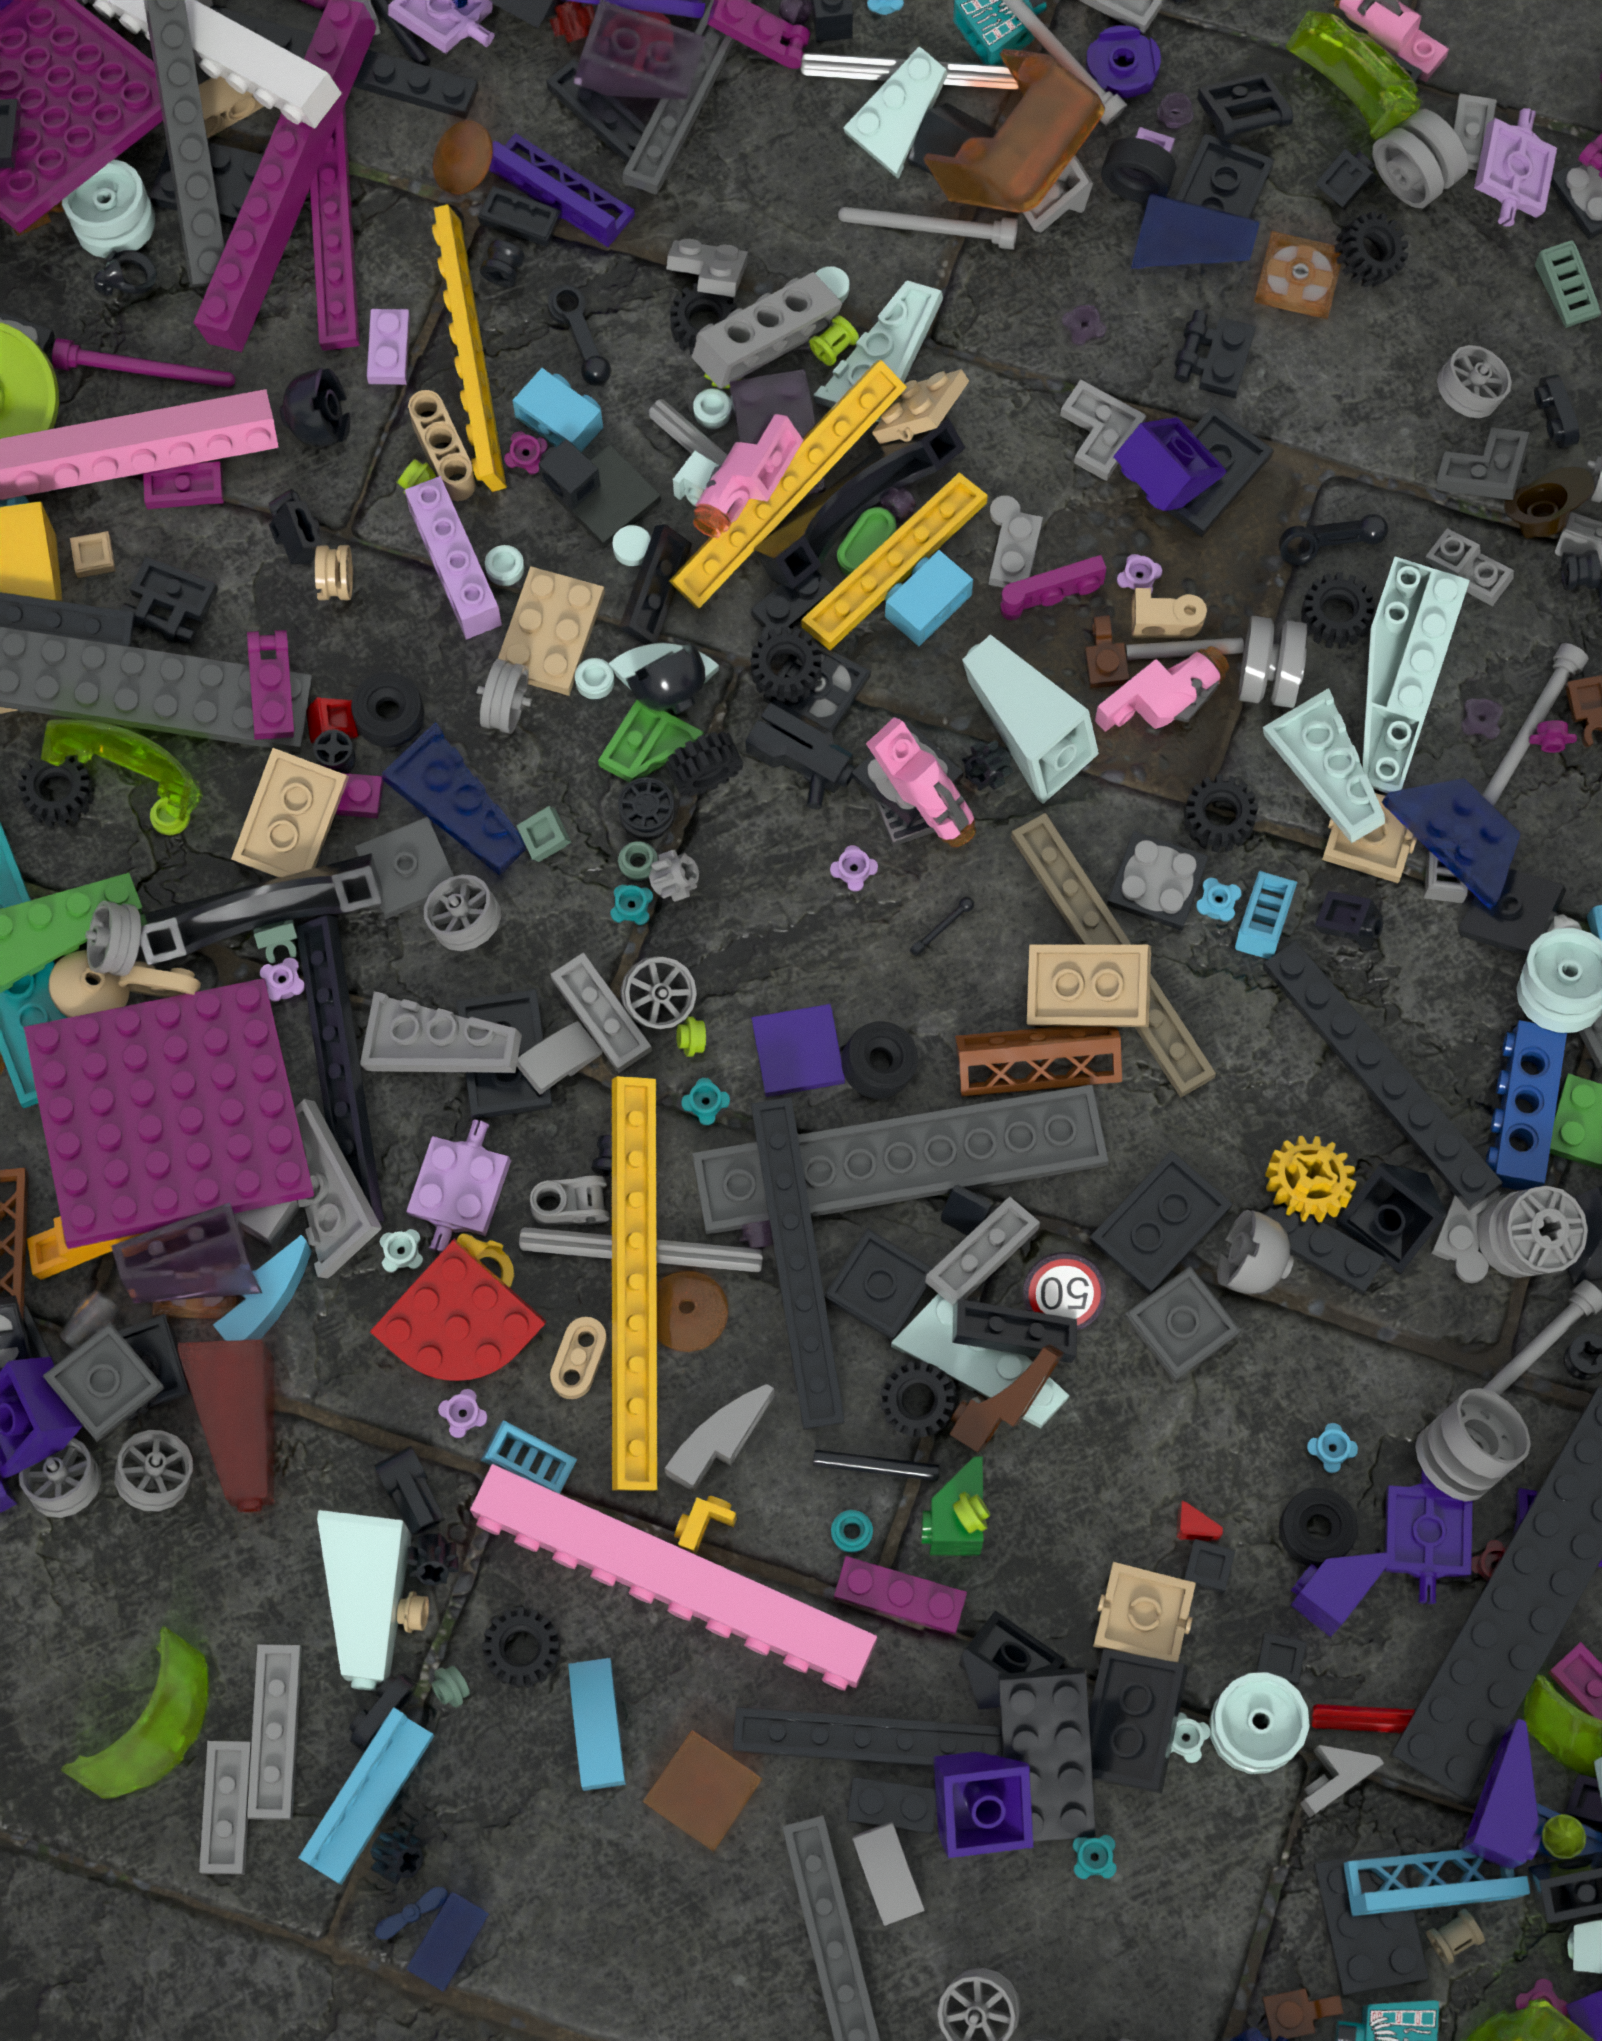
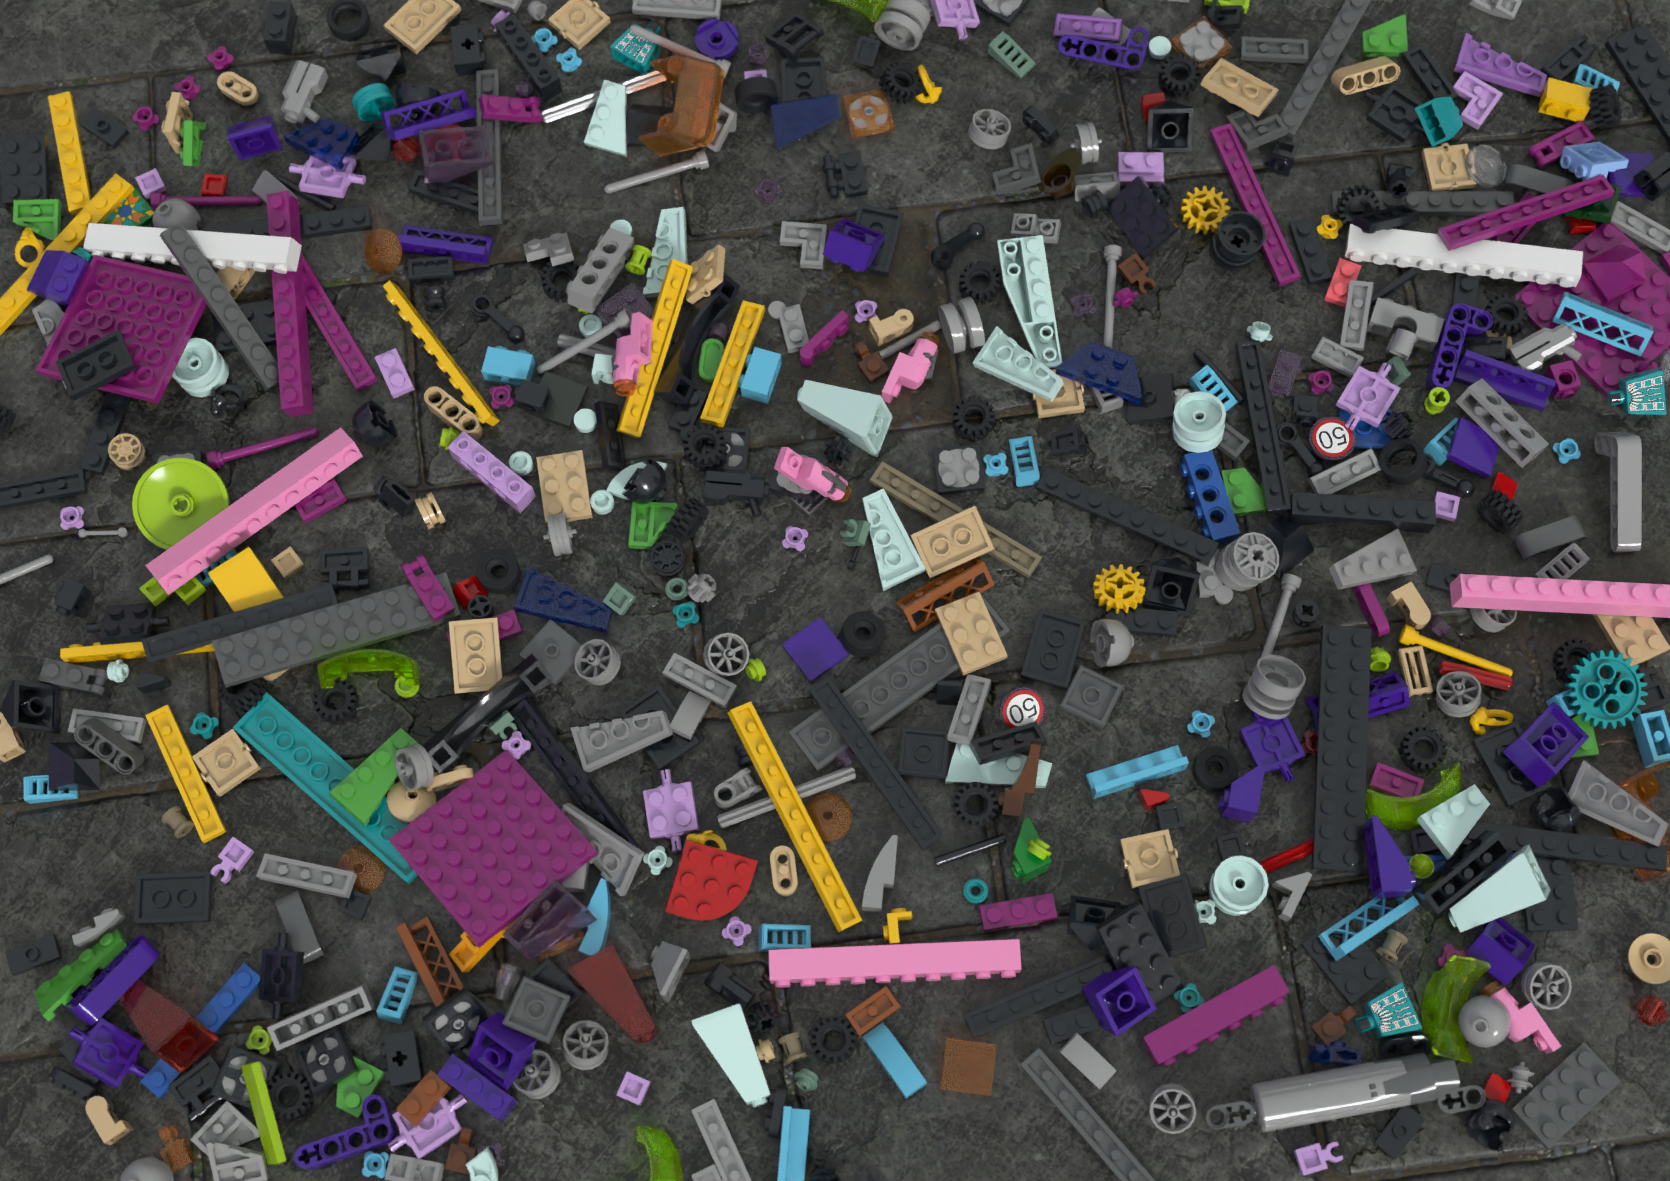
camera: 25 degrees left, 0 degrees up
(191, 1570) = (633, 1088): none -> lavender plate
(331, 1419) = (668, 967): none -> light grey slope
(454, 1628) = (792, 1048): none -> dark tan bush
(602, 1634) = (872, 1011): none -> dark orange plate
(705, 1089) = (777, 694): teal plate -> none
(755, 420) = (622, 321): none -> light grey piece
(948, 902) = (855, 533): none -> sand green tile
(994, 951) = (892, 547): none -> light aqua wing
(1045, 1137) = (971, 633): none -> tan plate
(1120, 1905) = (1214, 1016): none -> magenta brick
(1193, 1471) = (1136, 771): none -> medium azure fence
(1414, 275) = (933, 91): none -> yellow piece

